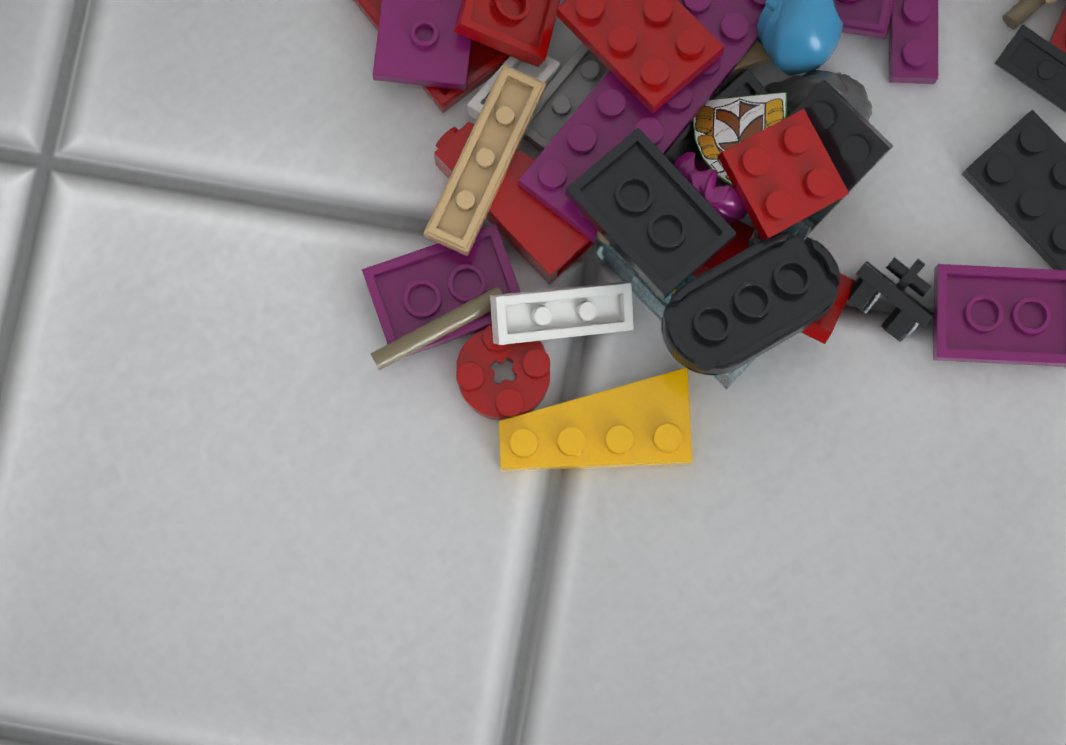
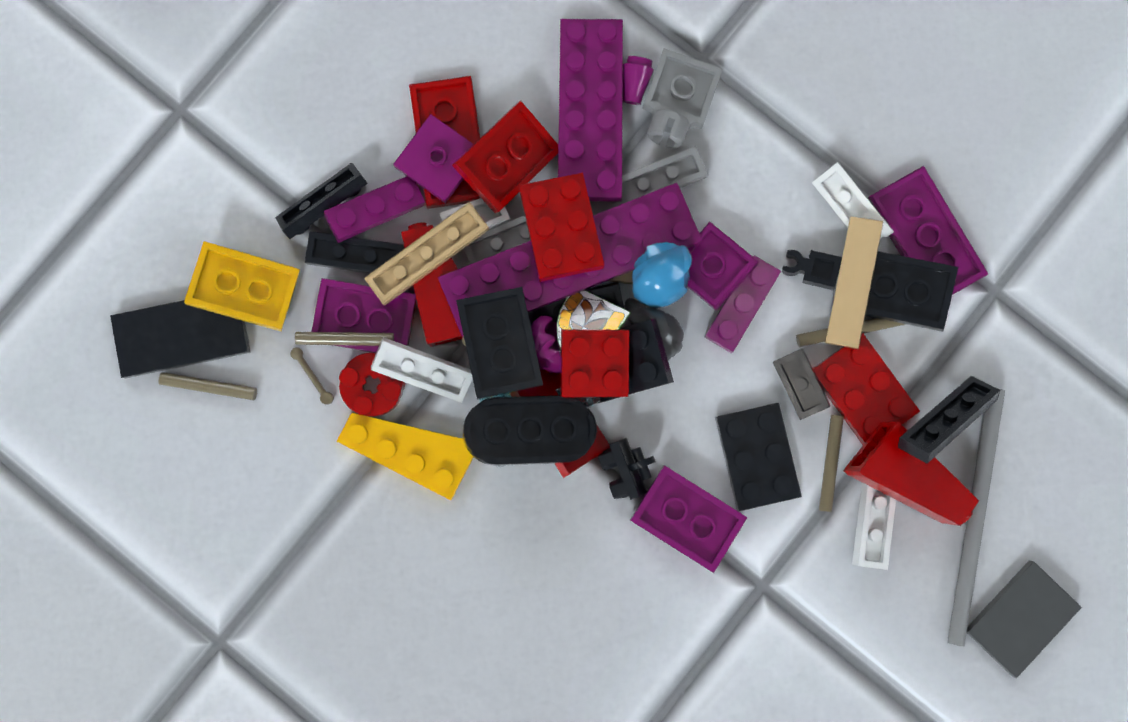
camera: 30 degrees right, 5 degrees up
(213, 446) = (174, 338): none -> black tile
(265, 335) = (242, 286): none -> yellow plate
(288, 493) = (207, 386): none -> dark tan bar
(303, 173) = (311, 207): none -> black plate
(378, 145) = (374, 208): none -> magenta plate
(379, 218) = (350, 254): none -> black plate
(452, 422) = (326, 397): none -> dark tan hinge

